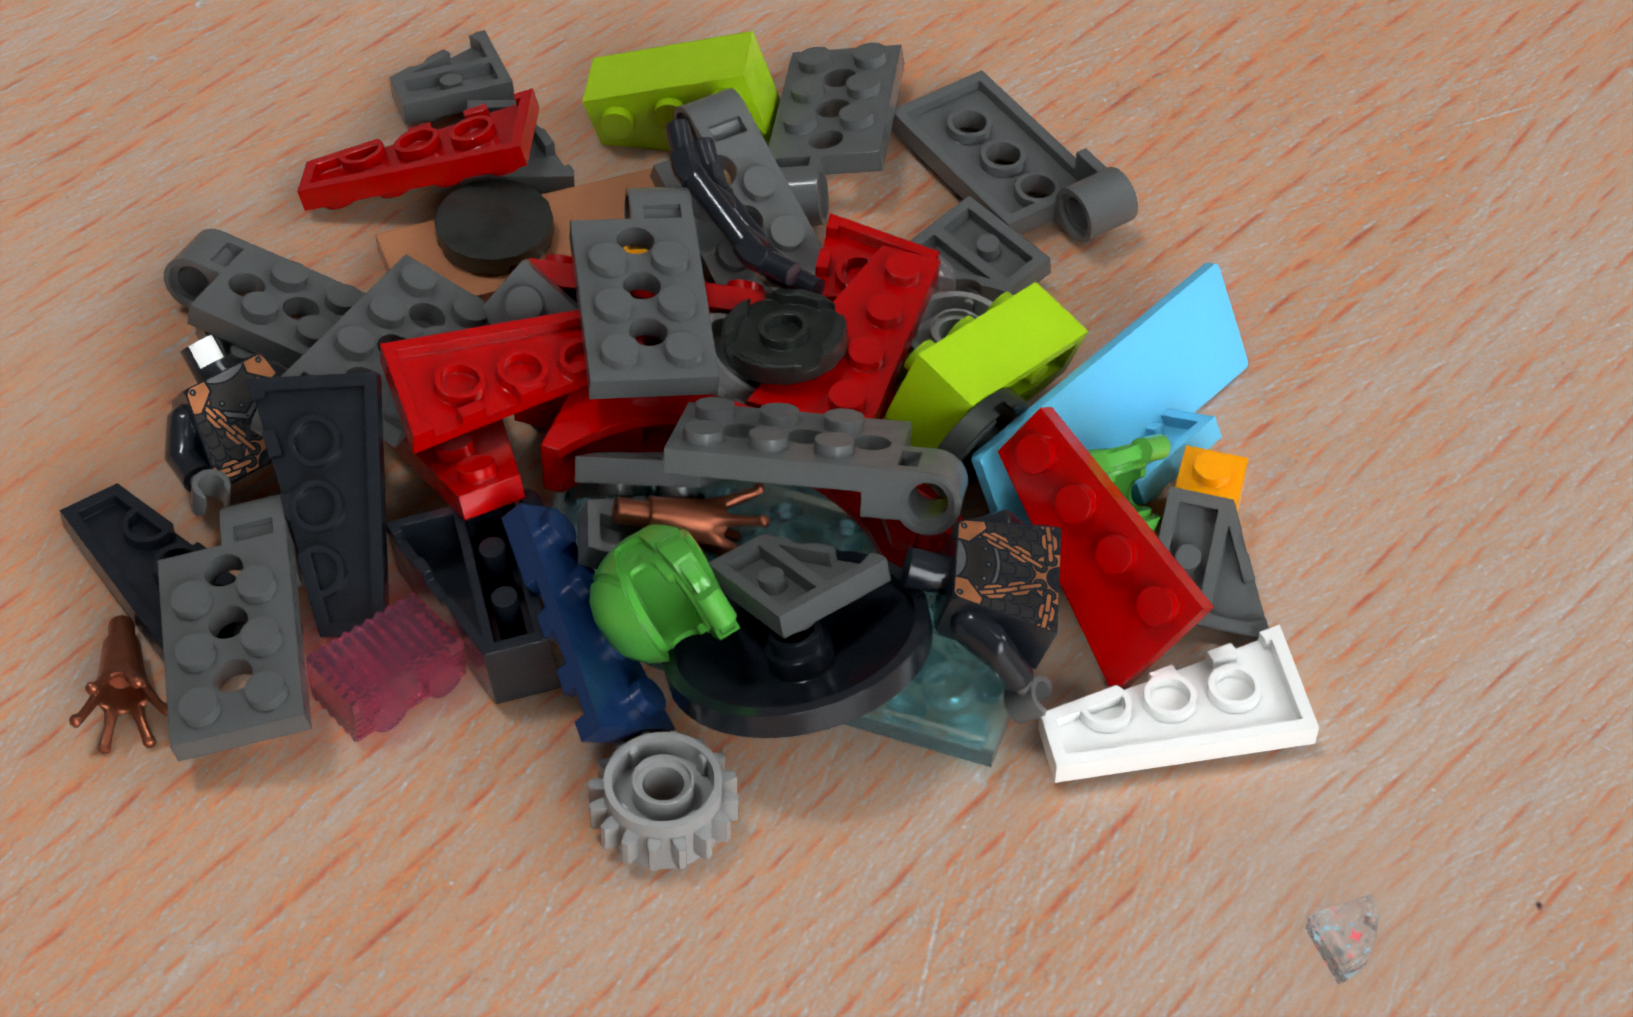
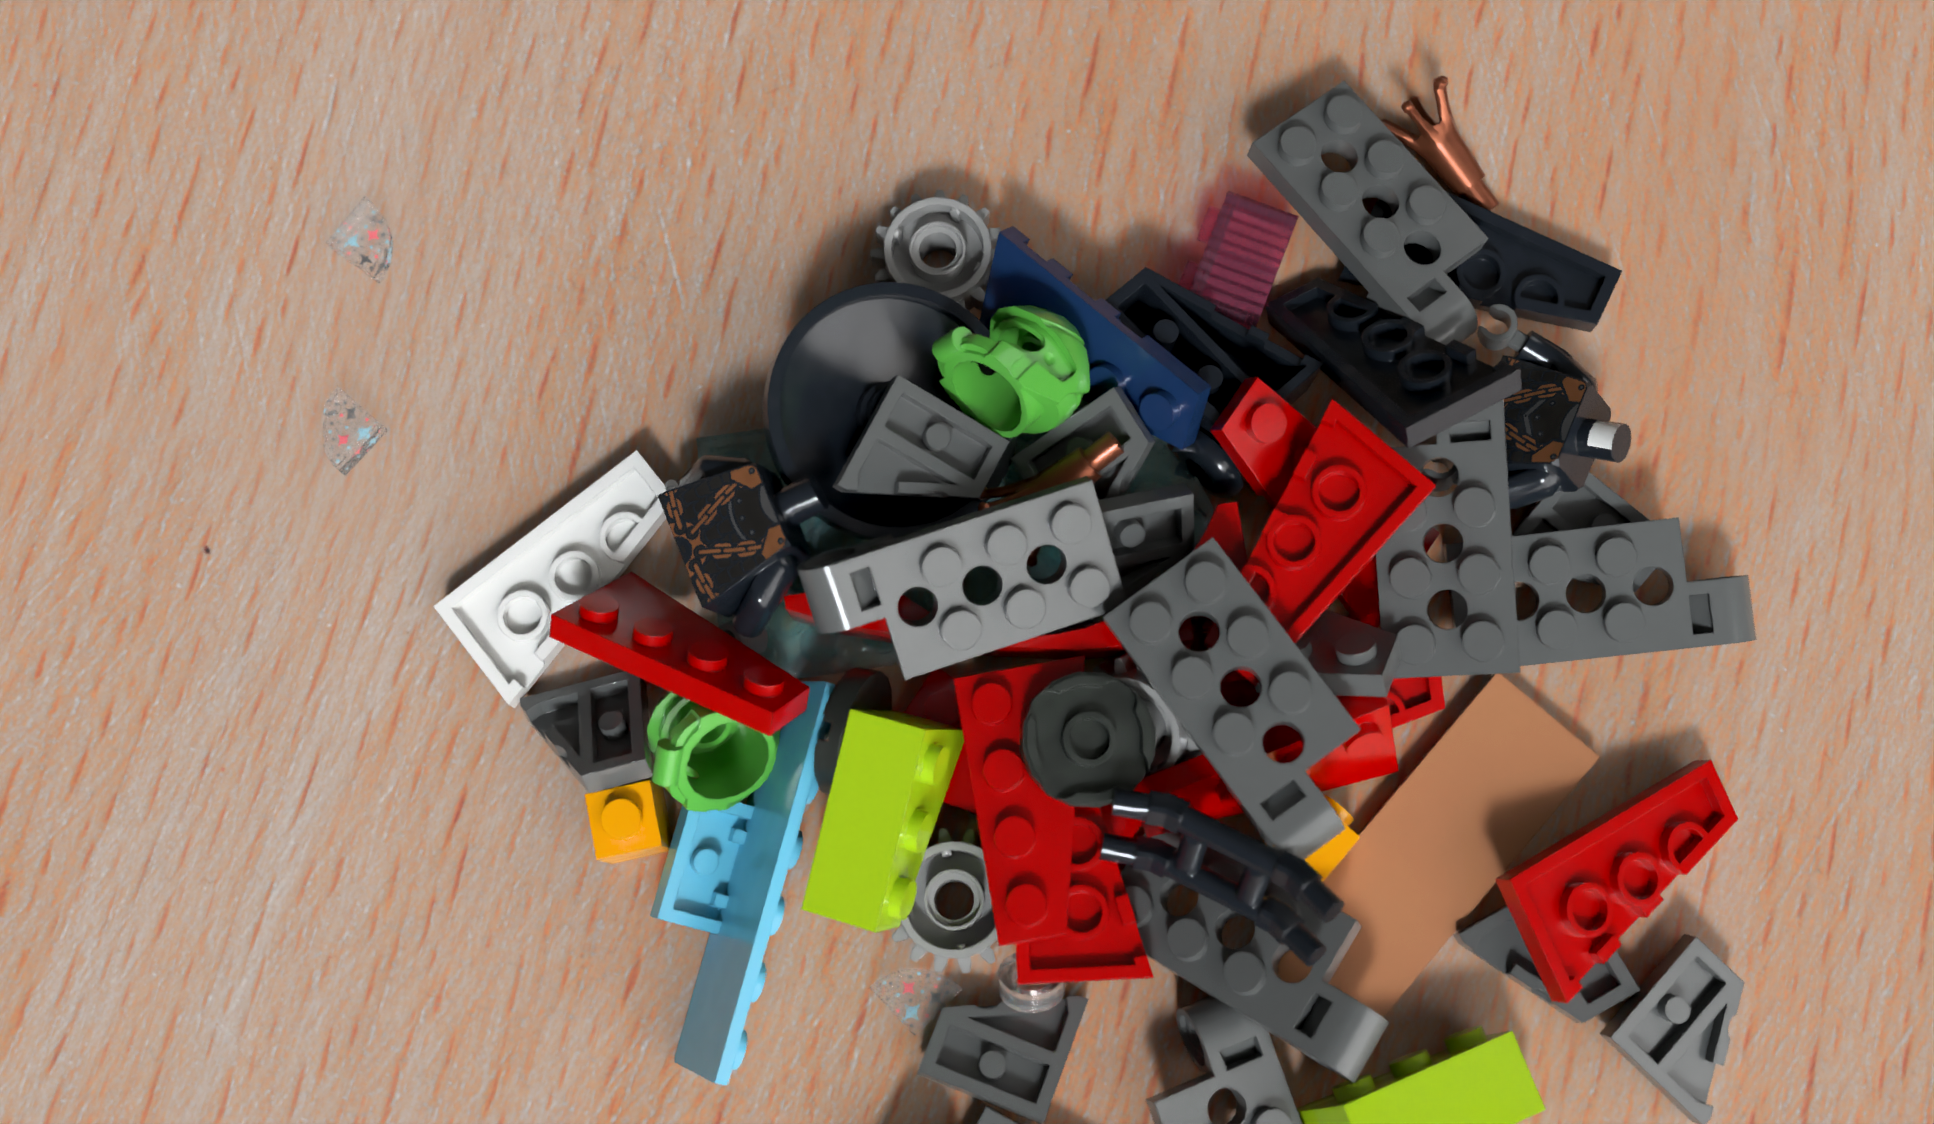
camera: 160 degrees right, 30 degrees up
(493, 225) = (1487, 814): pearl dark grey tile -> none

